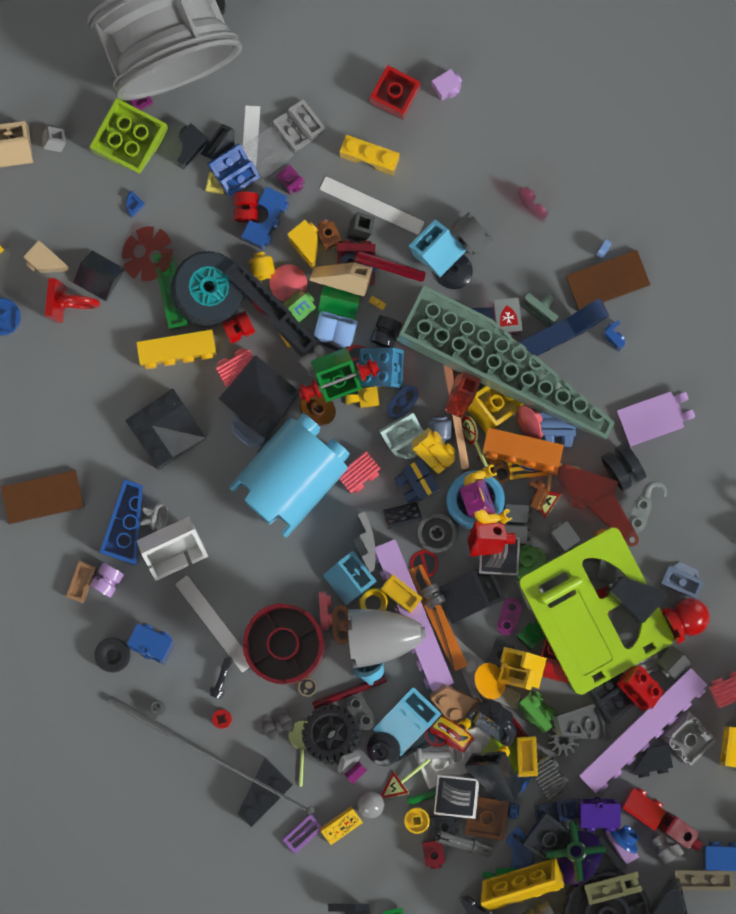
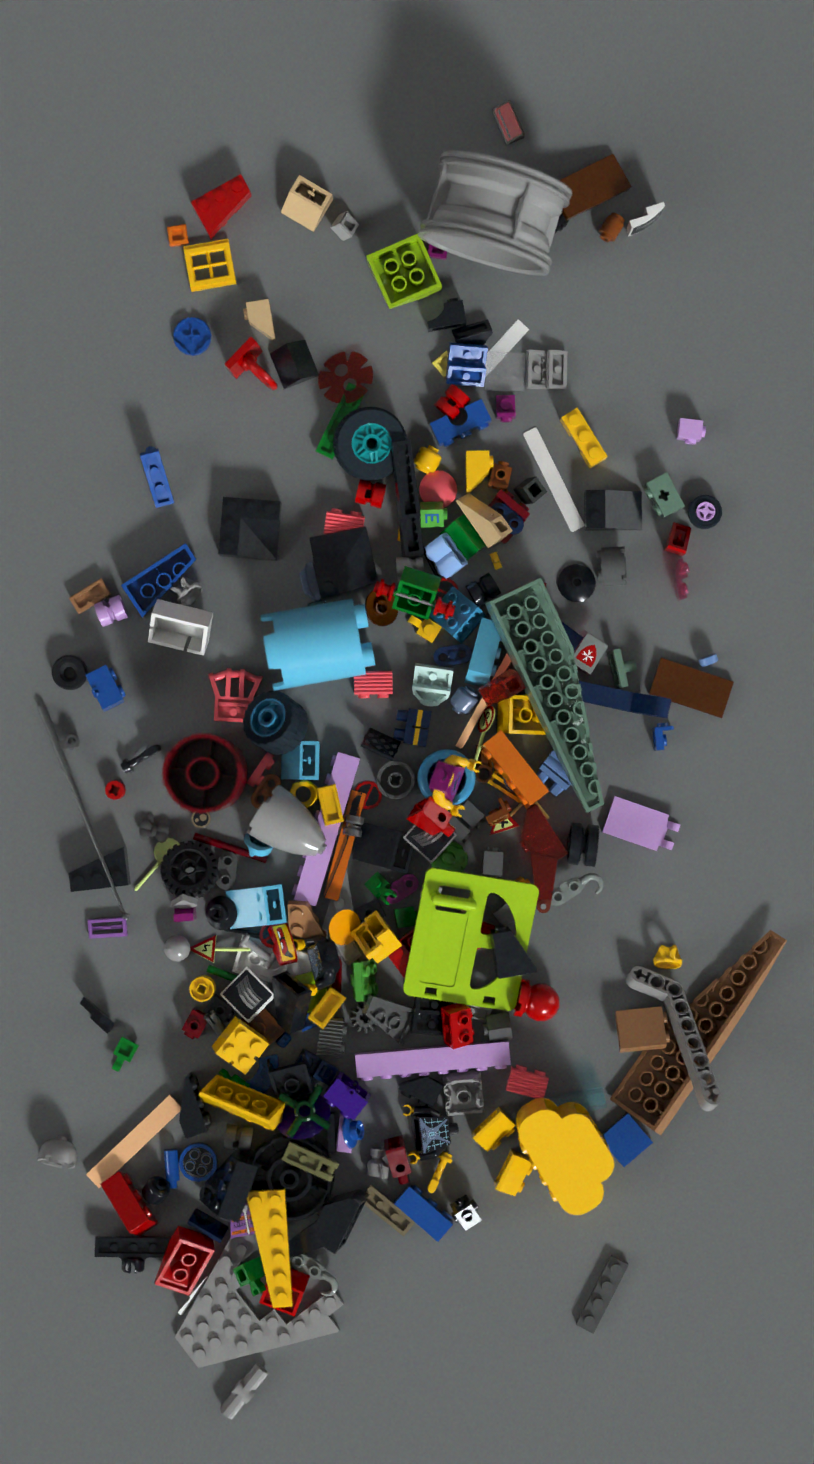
camera: 35 degrees right, 5 degrees up
(42, 497) = (112, 505): reddish brown tile -> none
(60, 446) = (156, 477): none -> blue piece
(133, 204) = (366, 328): blue tile -> none
(176, 348) = (308, 471): yellow brick -> none
(213, 622) = (168, 705): white sticker -> none
(263, 580) = (233, 708): none -> coral plate
(307, 563) = (275, 722): none -> black wheel
(341, 825) = (141, 945): yellow tile -> none
(365, 543) = (333, 744): light grey slope -> none
(390, 266) = (527, 540): dark red axle -> none
(395, 92) = (643, 404): red brick -> none
(427, 381) = (484, 654): none -> medium azure wedge
(433, 450) = (445, 713): yellow brick -> none
(436, 192) = (612, 510): none -> black slope
(437, 248) = (576, 555): medium azure slope -> none
(460, 142) = (665, 485): none -> sand green brick
(483, 840) = (240, 1045): none -> yellow piece
(491, 628) = (380, 887): none -> green plate
(505, 175) = (678, 539): none -> red slope
(508, 131) = (710, 514): none -> black wheel
(529, 422) = (537, 751): coral dish -> none
(642, 808) = (384, 1119): red slope -> none
(683, 580) = (559, 969): sand blue slope -> none
(688, 790) = (430, 1132): none -> black torso
(722, 826) = (434, 1181): none -> yellow hinge

